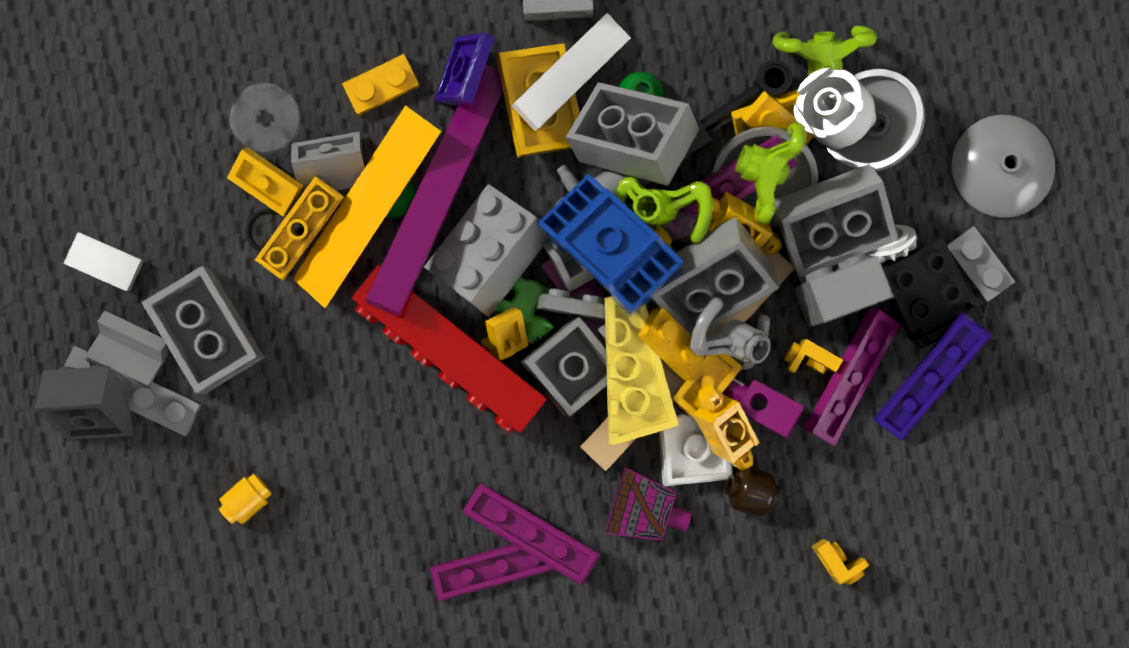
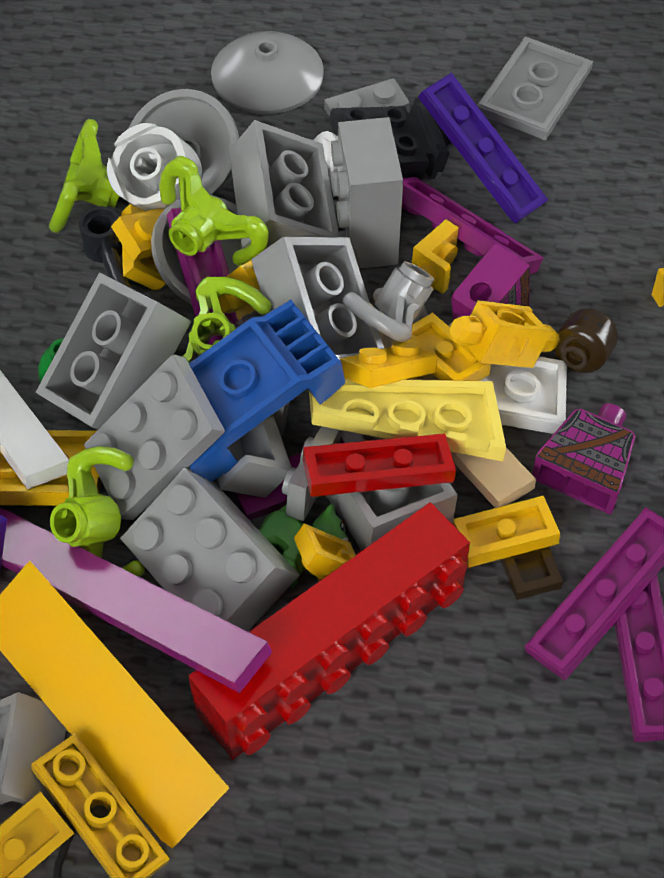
camera: 75 degrees left, 30 degrees down
(496, 159) = (86, 516): none -> lime piece
(542, 478) = (532, 573): none -> dark brown tile
(559, 187) = (162, 429): none -> light grey plate
(563, 455) = (508, 530): none -> yellow plate
(573, 355) = (378, 465): none -> red plate
(1038, 409) = (535, 88): none -> light grey tile

